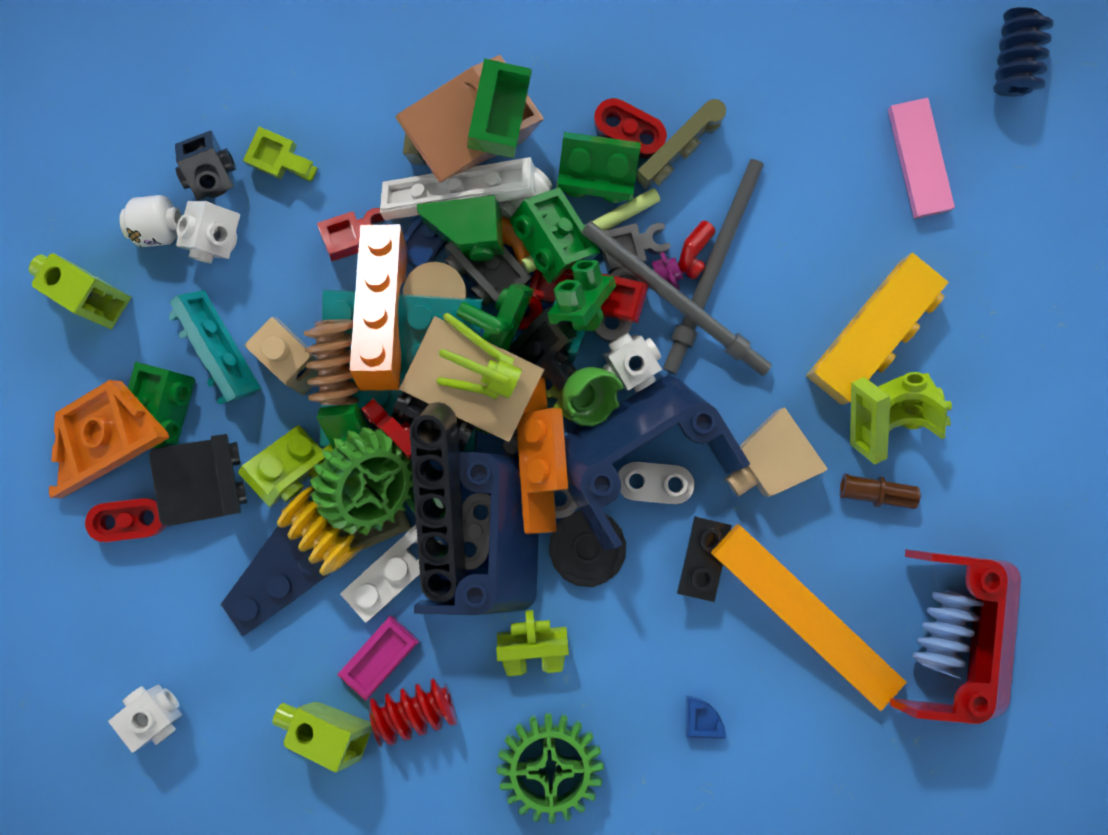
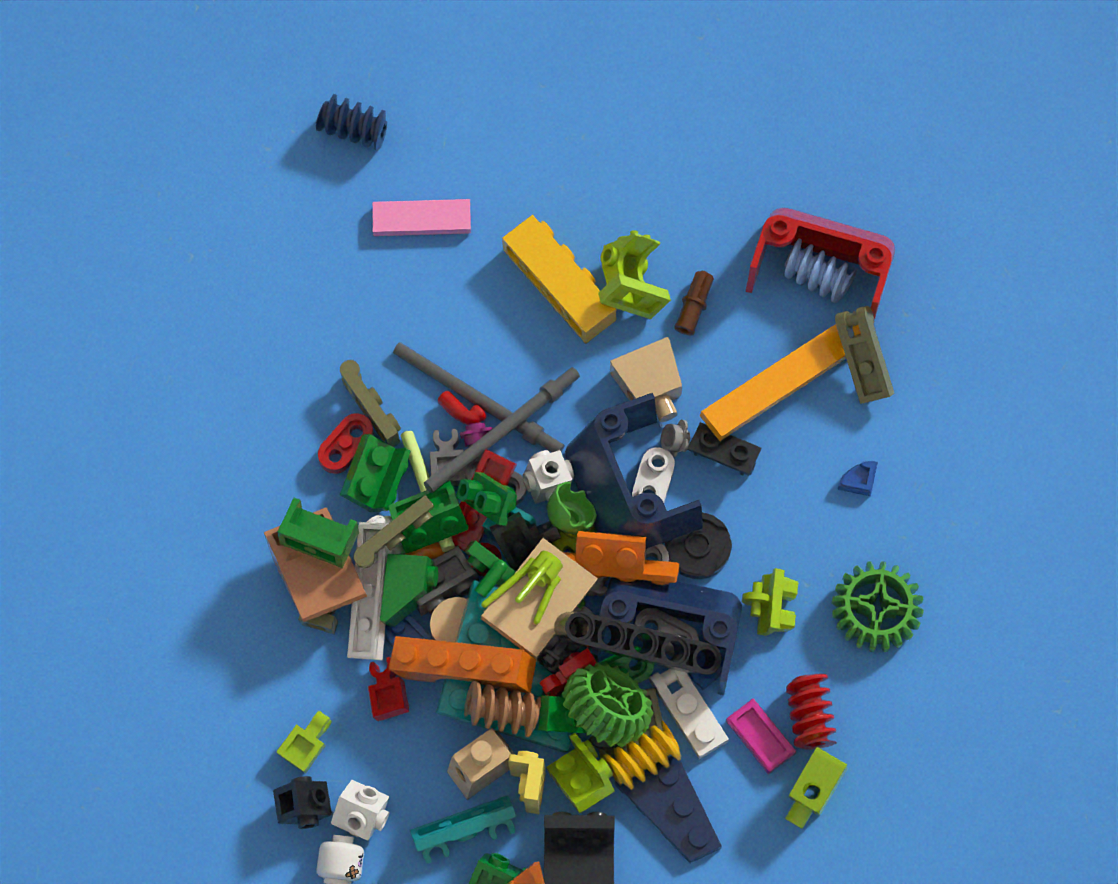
camera: 75 degrees left, 15 degrees down
(259, 412) = (532, 778): none -> light yellow bracket
(513, 194) = (392, 534): none -> olive plate
(708, 500) = (675, 437): none -> light grey plate
(851, 705) = (864, 355): none -> olive plate

